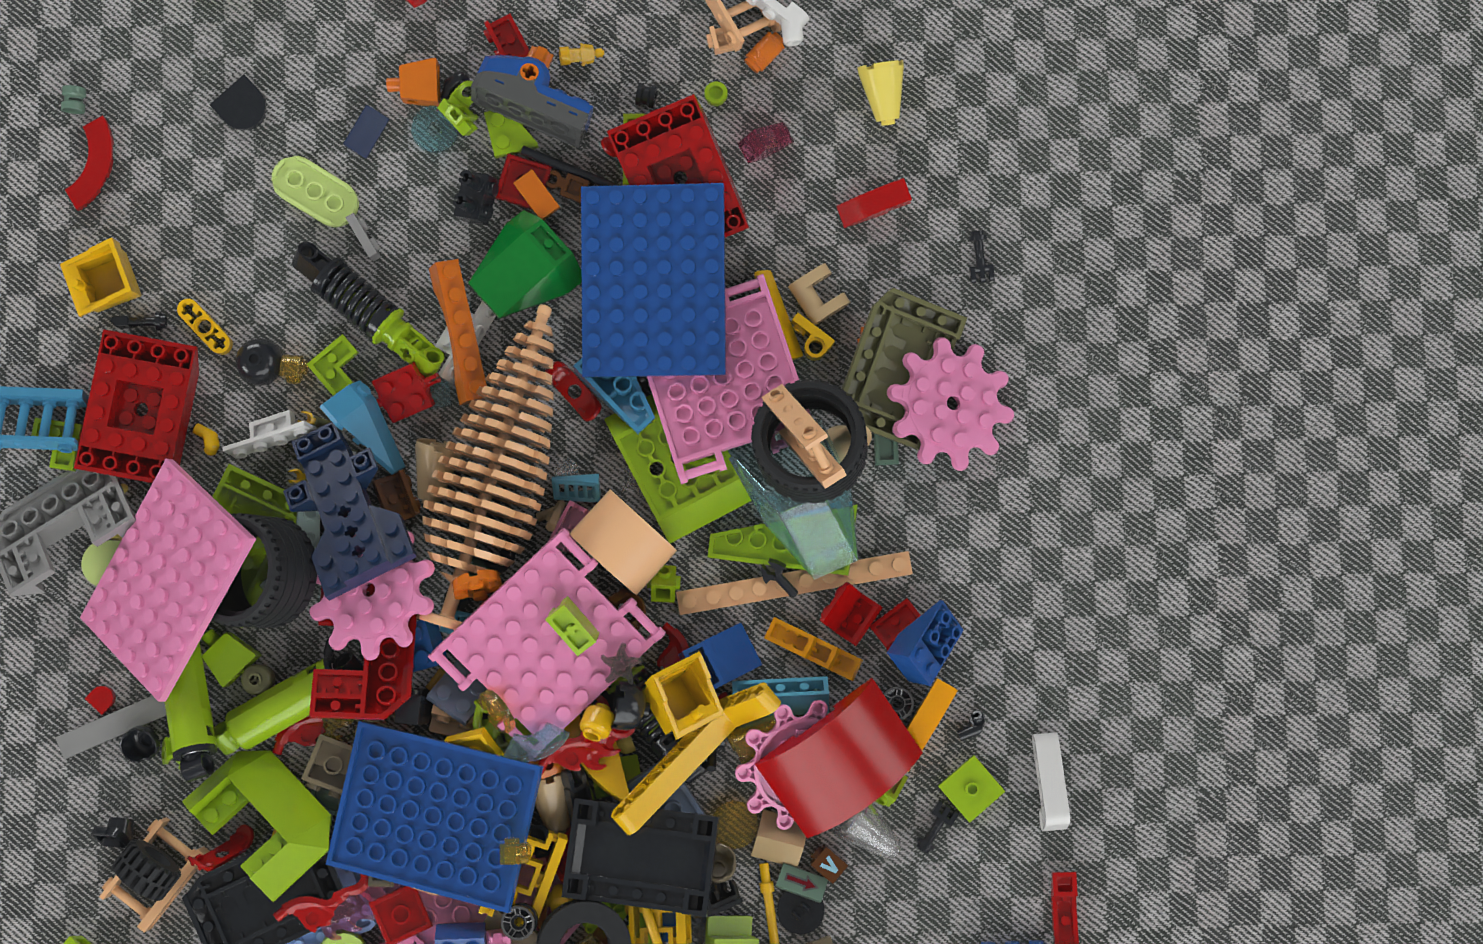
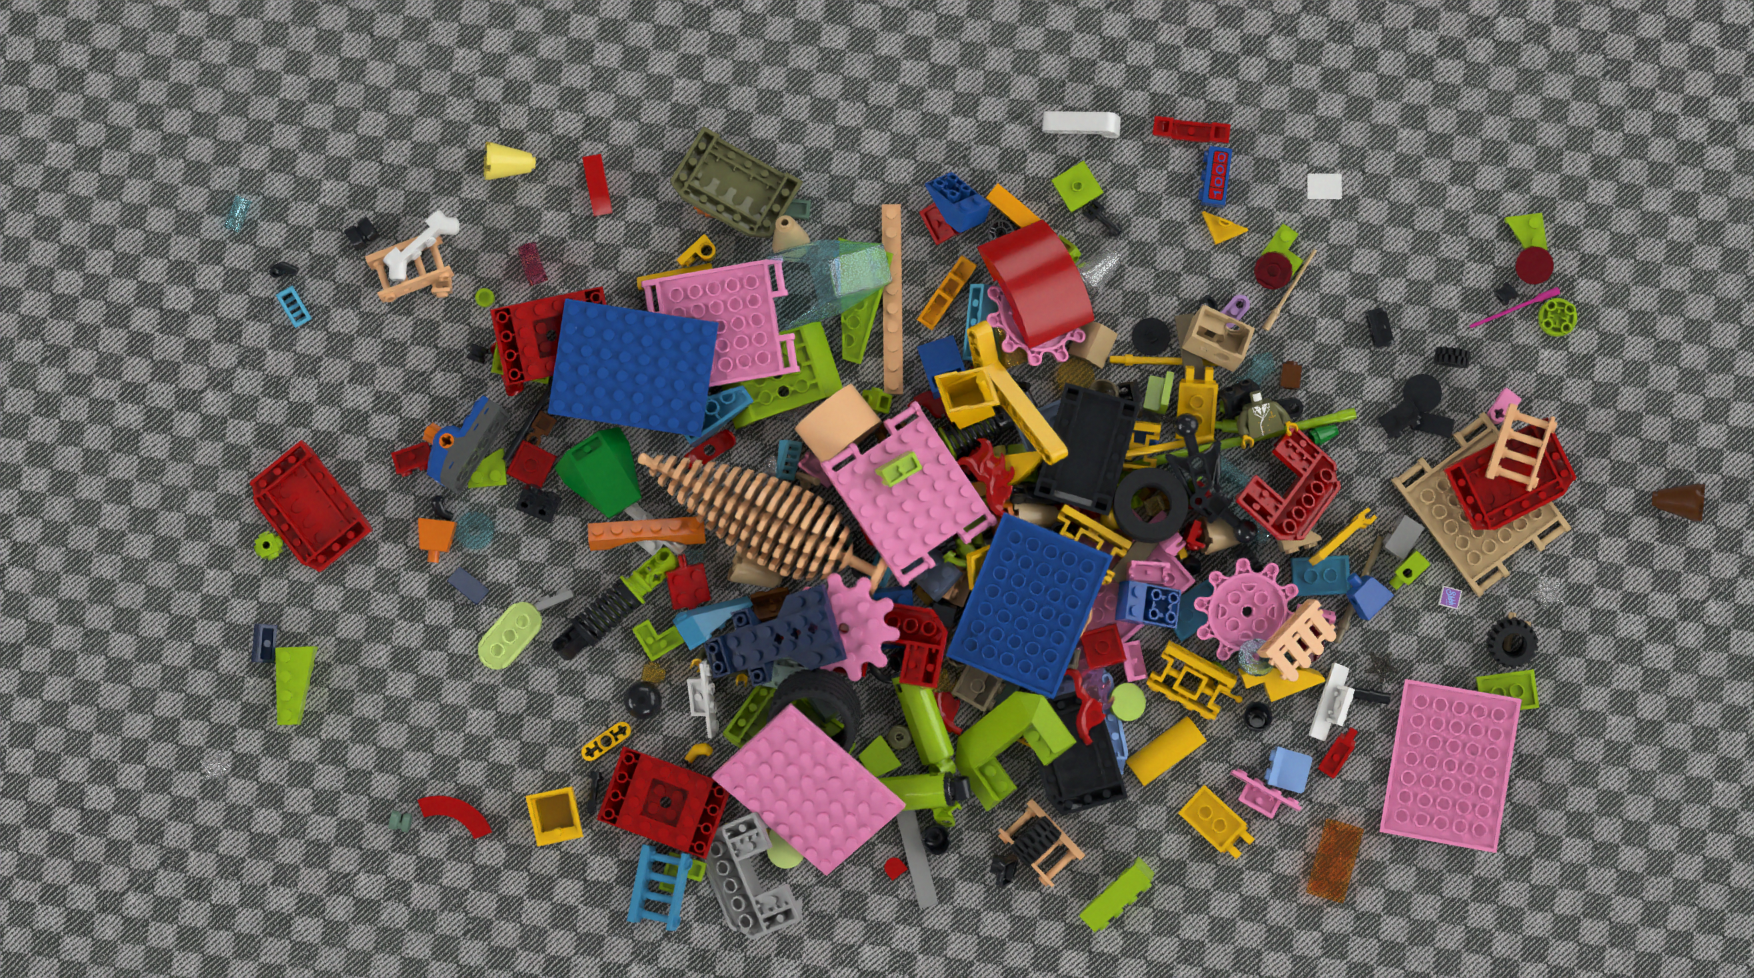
camera: 75 degrees left, 0 degrees up
(235, 846) = (1028, 773): red piece -> none
(241, 105) = (428, 685): black tile -> none
(454, 110) = (462, 509): lime piece -> none
(476, 586) = (855, 541): orange plate -> none
(497, 710) = (954, 541): clear yellow tile -> none
(509, 921) = (1129, 546): black wheel -> none
(514, 852) = (1066, 541): clear yellow plate -> none
(536, 195) = (544, 454): orange tile -> none
(537, 745) = (987, 515): clear light blue tile -> none
(584, 54) = (434, 399): yellow piece -> none
(597, 722) = (976, 465): yellow head -> none
(621, 665) = (935, 438): clear smoke animal -> none
(629, 706) = (968, 439): black cylinder -> none
(764, 52) = (458, 252): orange head -> none
(778, 576) = (885, 309): black bar -> none
(801, 883) = (1129, 331): sand green tile -> none
(804, 436) = (781, 262): light nougat fence -> none
(804, 489) = (748, 260): black tyre -> none
(810, 300) = (668, 248): tan connector -> none
(828, 863) = (1117, 308): reddish brown brick -> none
(850, 613) = (924, 257): red bracket -> none
(927, 408) = (774, 169): bright pink plate -> none
(974, 726) = (1029, 176): black arm -> none
(981, 267) = (664, 108): black hinge -> none

